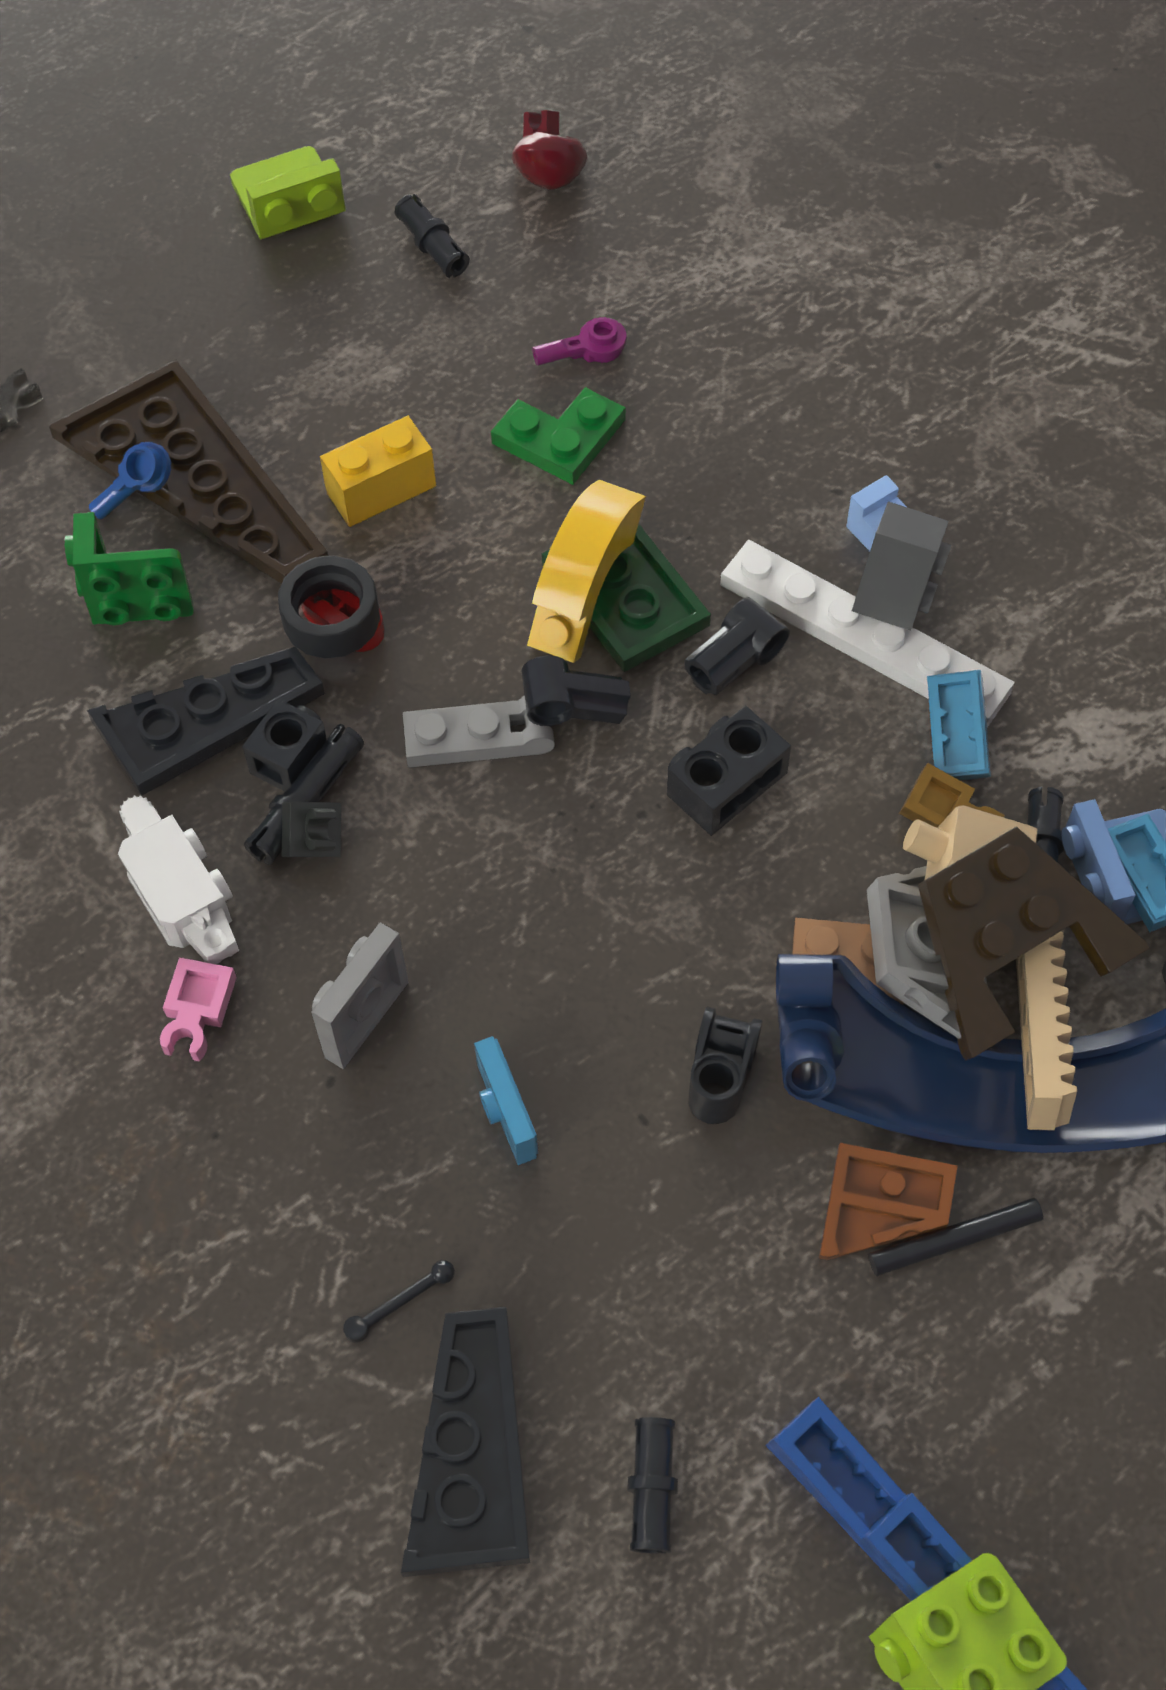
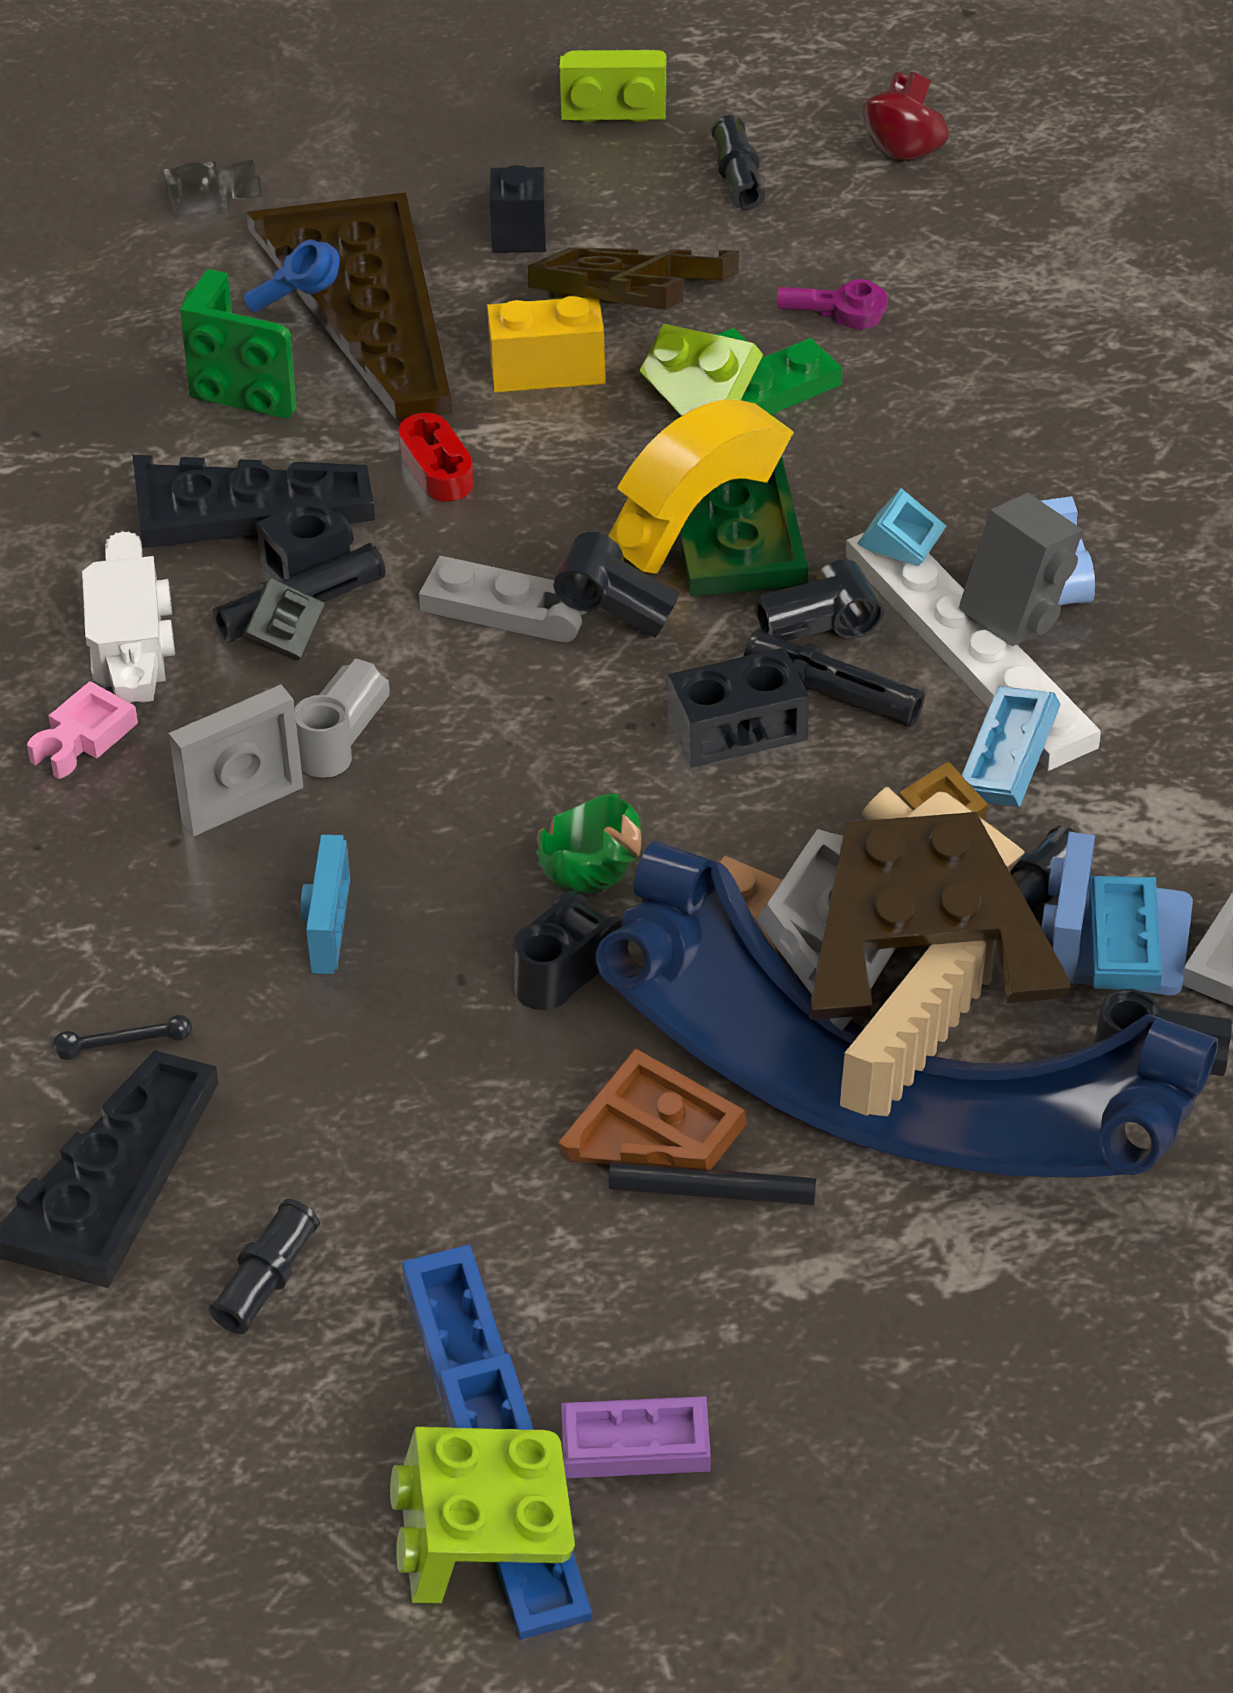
camera: 25 degrees right, 15 degrees down
(278, 343) = (518, 209): none -> black slope
(329, 574) = (420, 463): black tyre -> none
(403, 386) = (626, 276): none -> dark brown wing
(411, 903) = (336, 717): none -> light grey piece
(520, 458) = (699, 367): none -> lime wing
(690, 953) = (590, 844): none -> green hair
(768, 553) = (902, 530): none -> medium azure slope
(846, 712) = (844, 680): none -> black pin
(1039, 1514) = (635, 1437): none -> medium lavender plate

